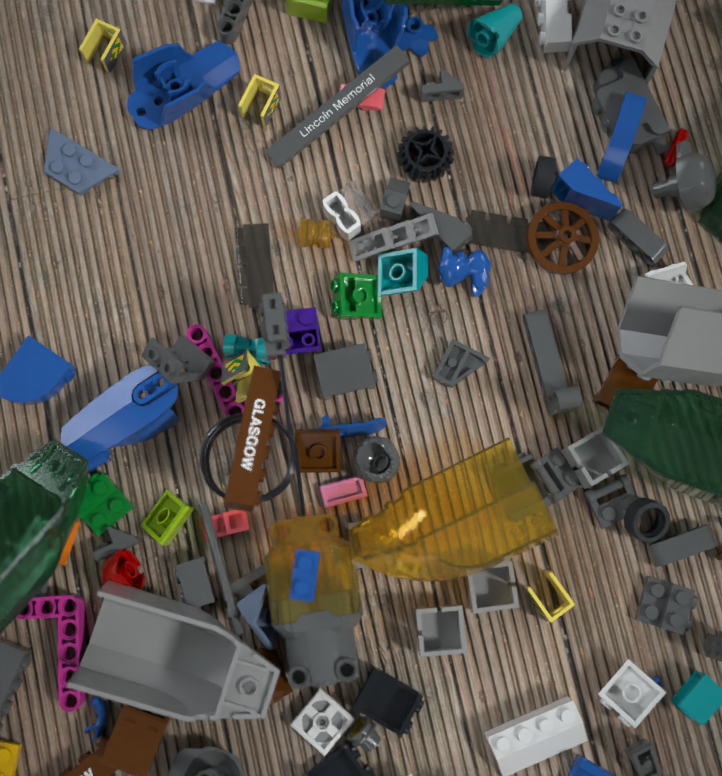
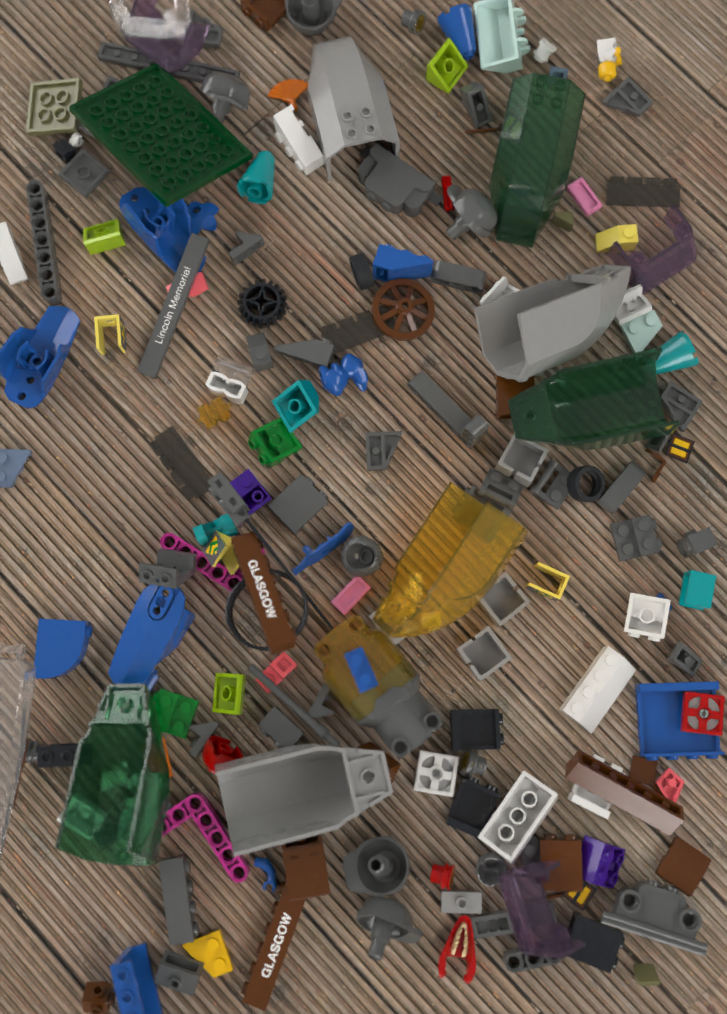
camera: 30 degrees left, 0 degrees up
(257, 614) = (341, 722): sand blue slope -> none
(318, 450) = (315, 574): reddish brown plate -> none
(393, 237) = (275, 382): light grey slope -> none
(622, 136) = (403, 208): blue slope -> none

